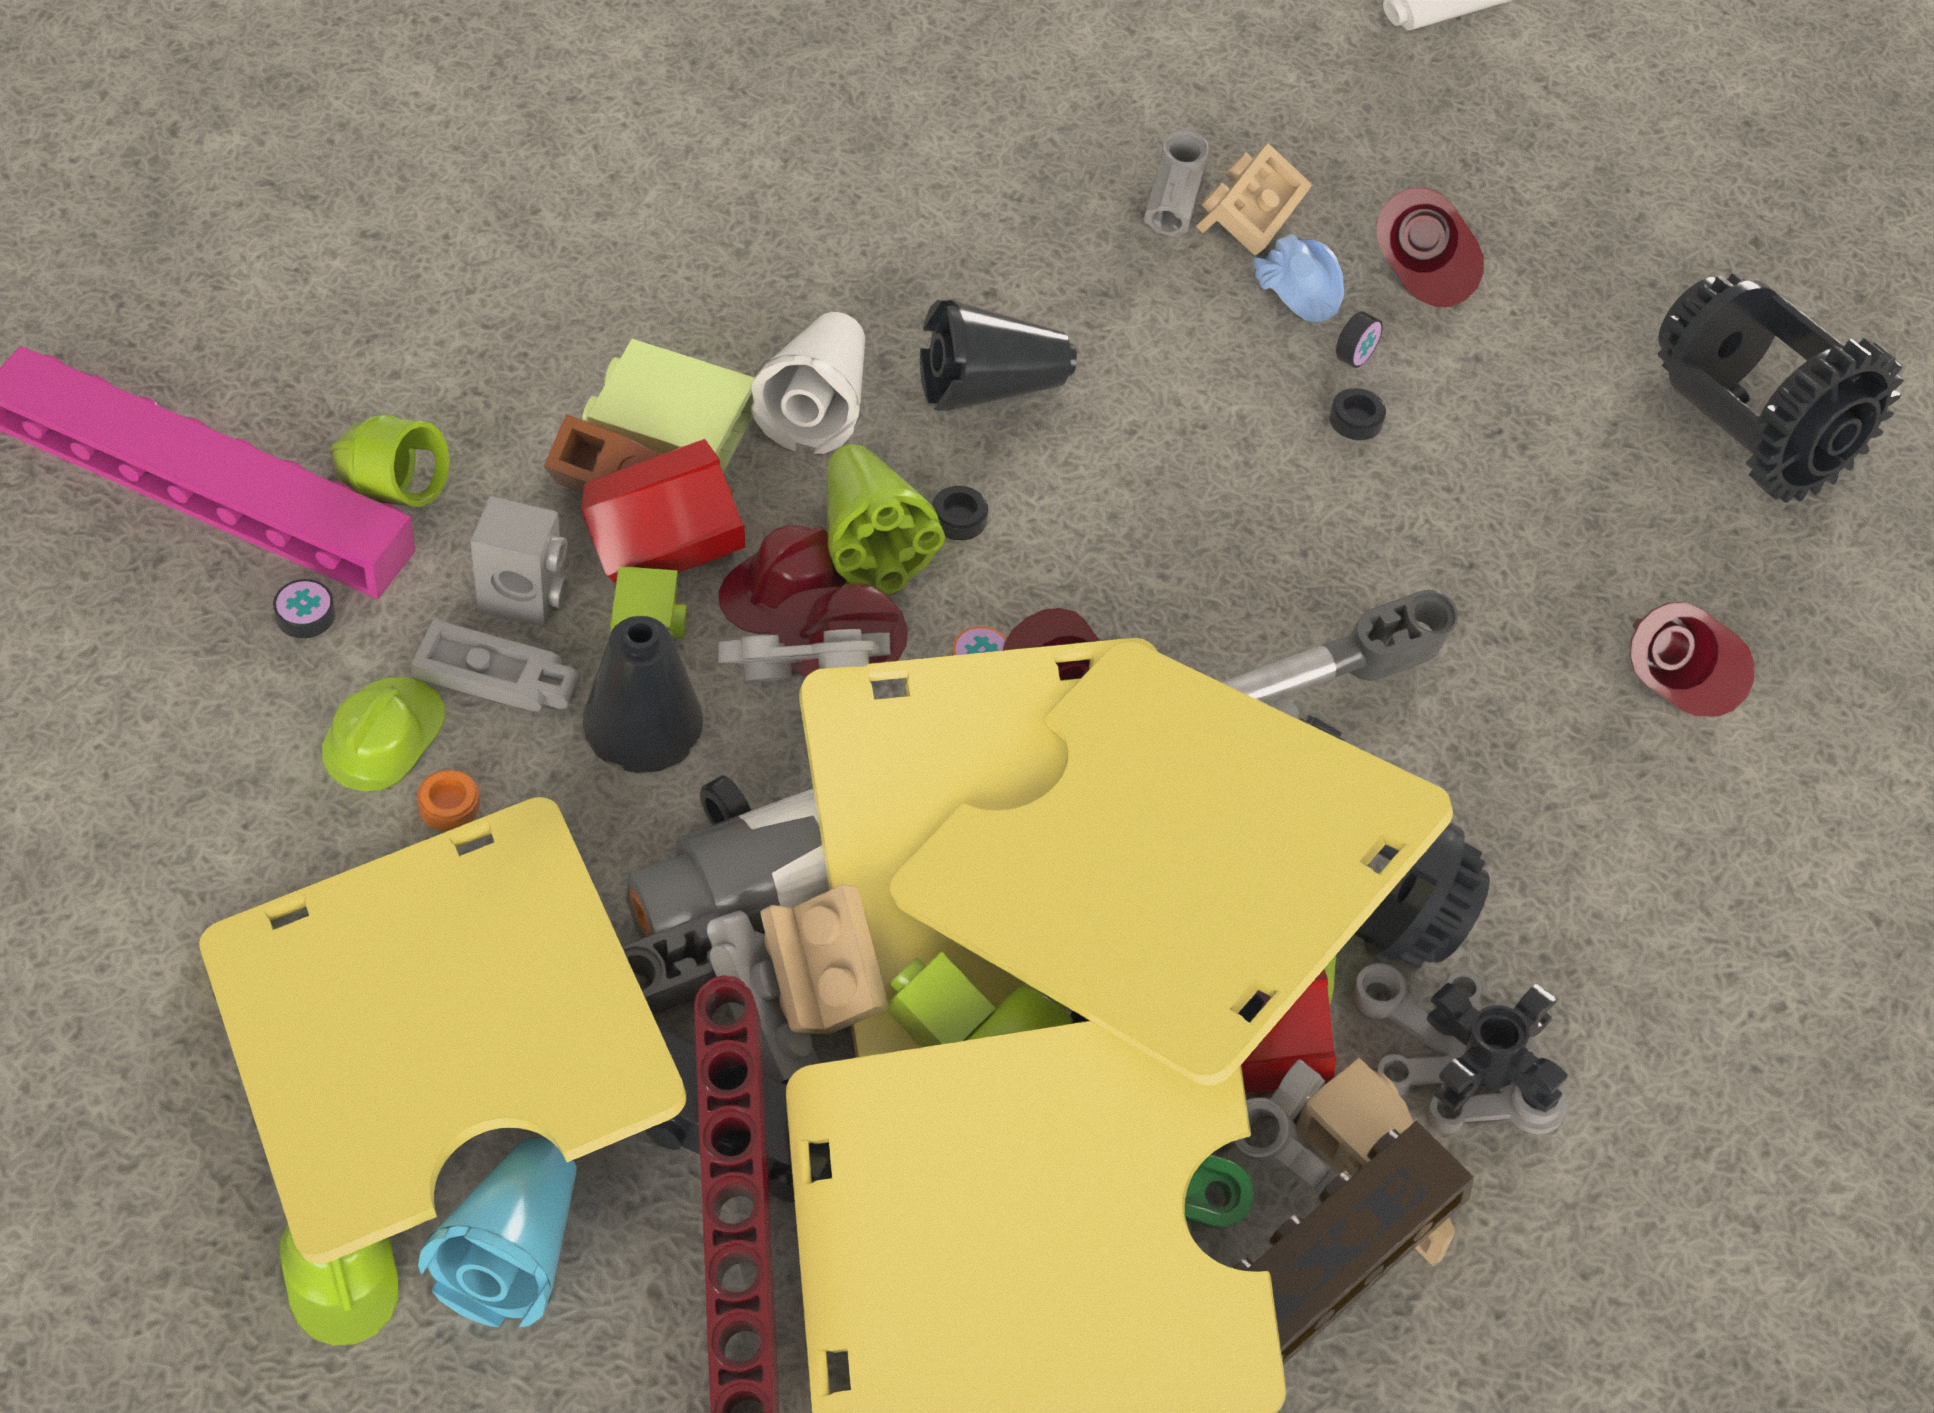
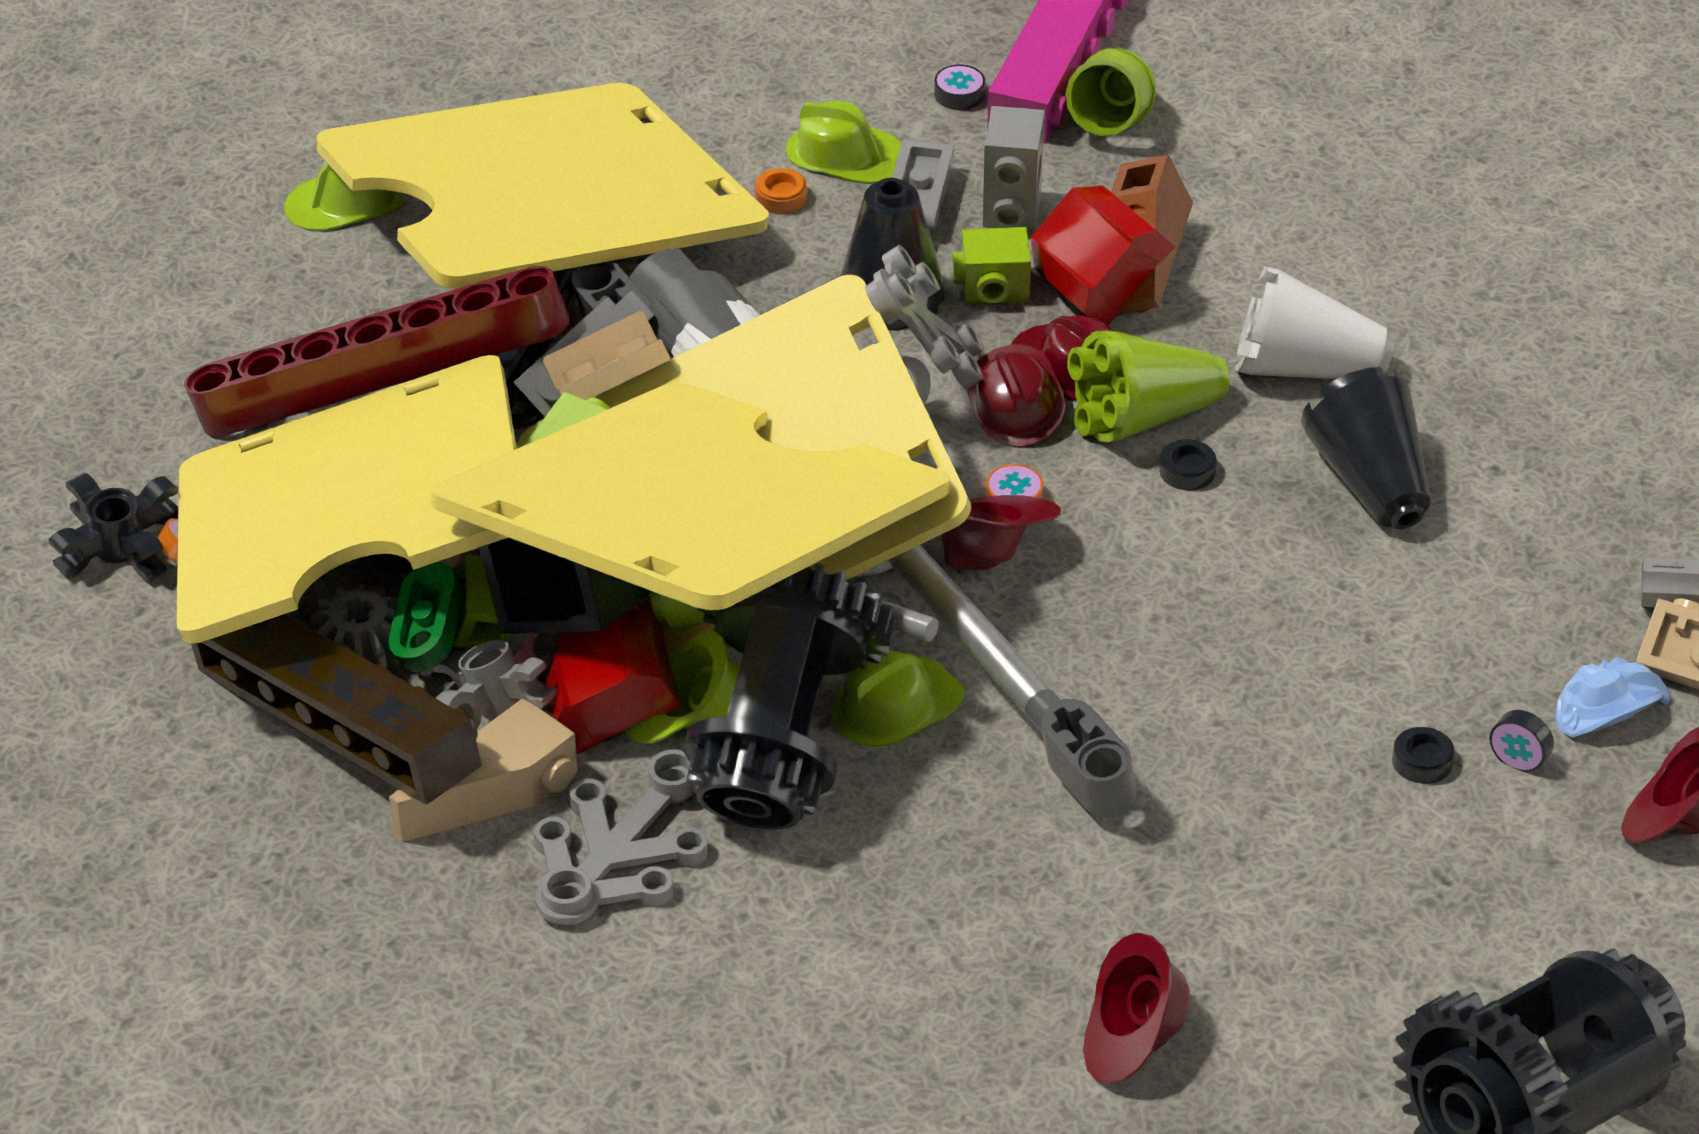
camera: 90 degrees right, 10 degrees down
(505, 1238) = (357, 253): medium azure cone -> none
(672, 401) = (1226, 249): yellowish green brick -> none
(1490, 1066) = (602, 837): black pin -> none

